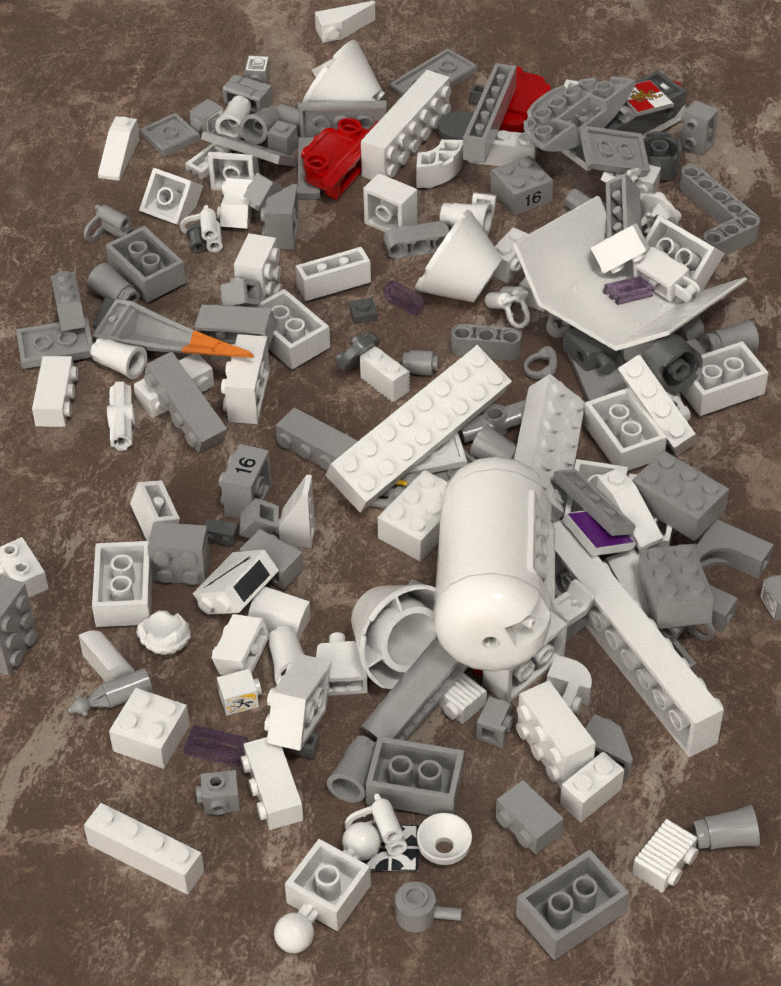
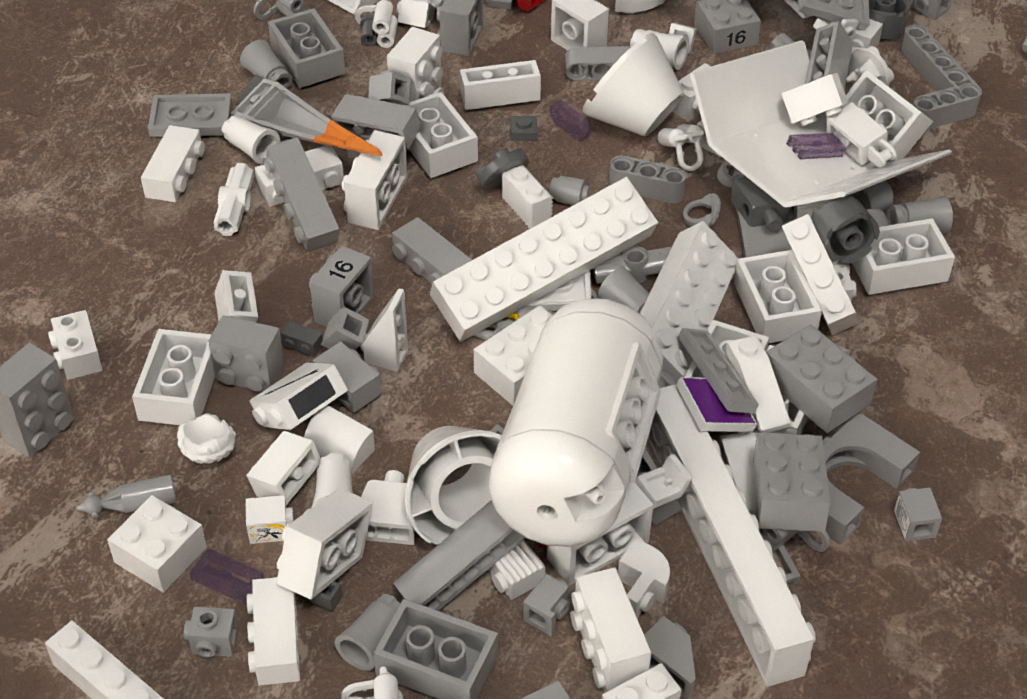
camera: 10 degrees right, 0 degrees up
(68, 300) = (213, 73): light grey brick -> none
(103, 656) = (134, 452): white brick -> none

